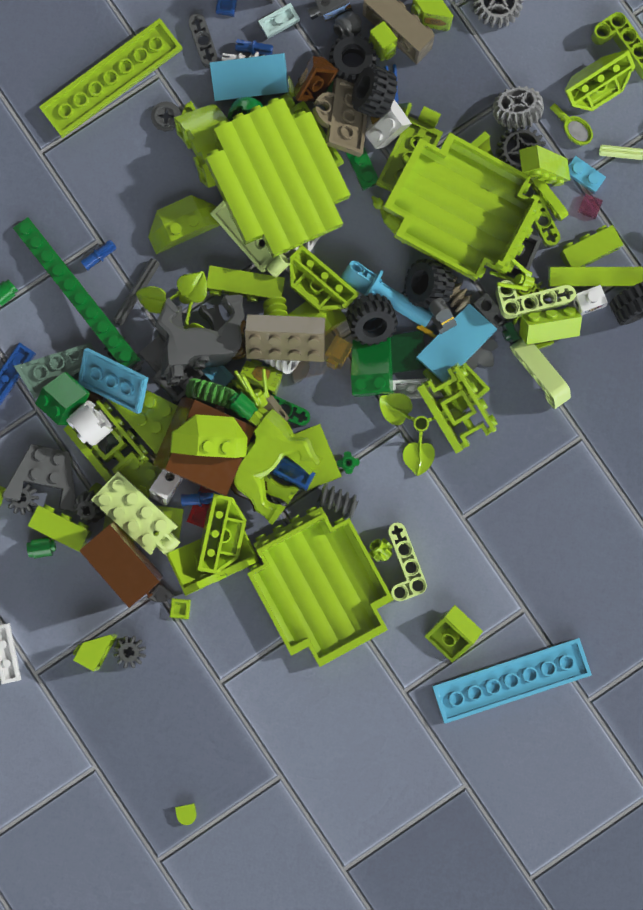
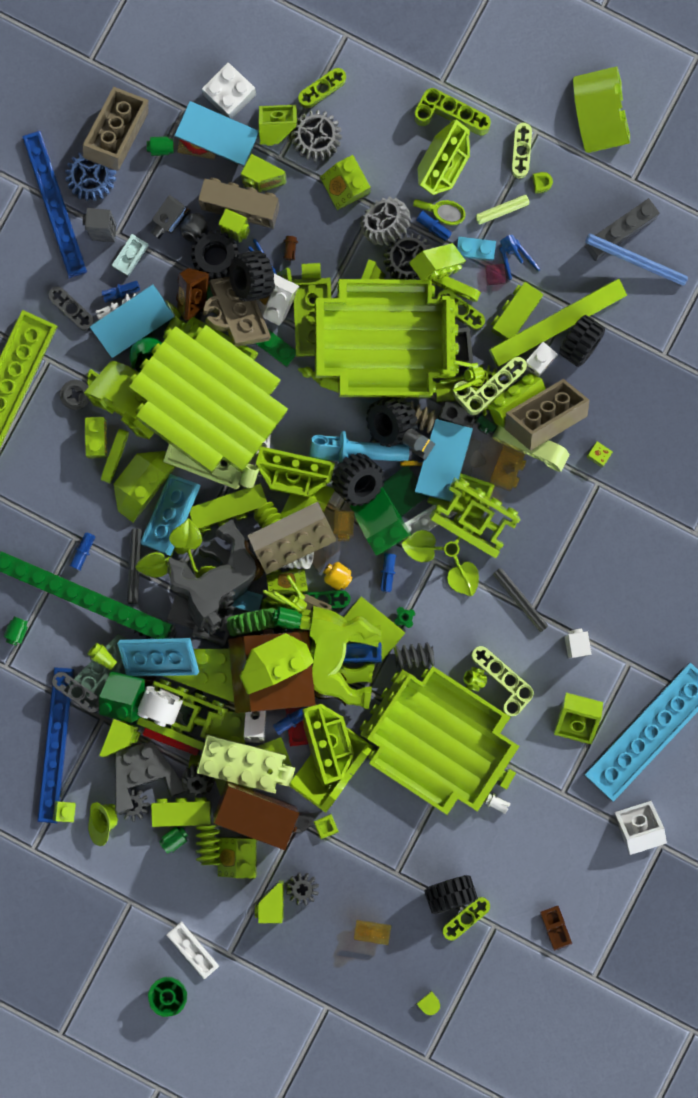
camera: 25 degrees left, 0 degrees up
(14, 362) = (76, 684): none -> dark grey beam
(41, 432) = (119, 737): none -> lime slope
(64, 353) = (101, 656): none -> lime cone
(68, 568) = (208, 845): none -> lime piece
(84, 461) = (171, 742): none -> red tile
(87, 594) = (237, 857): none -> lime slope
(163, 162) = (96, 437): none -> lime brick
(170, 723) = (372, 932): none -> clear yellow hips
(171, 187) = (114, 455): none -> lime beam
(196, 257) = (169, 513): none -> medium azure tile
(243, 753) = (451, 923): none -> lime beam
(256, 727) = (450, 894): none -> black tyre
(308, 394) = (337, 575): none -> yellow head
(334, 807) = (556, 928): none -> reddish brown slope
(340, 668) = (496, 803): none -> white pin
(354, 415) = (388, 572): none -> blue axle
(361, 651) = (506, 778): none -> lime plate
(421, 88) = (290, 248): none -> reddish brown pin
(456, 760) = (641, 827): none -> white slope
(458, 502) = (520, 600): none -> dark grey axle
(488, 567) = (577, 644): none -> white brick
(489, 285) = (444, 392): none -> lime tile
(501, 56) = (345, 182): none -> lime slope
(513, 371) = (516, 461): none -> clear yellow brick
(558, 135) = (433, 226): none -> blue axle
(569, 350) = (546, 414): none -> dark tan brick
(597, 412) = (599, 454): none -> lime slope
(617, 188) = (511, 245): none -> blue plant

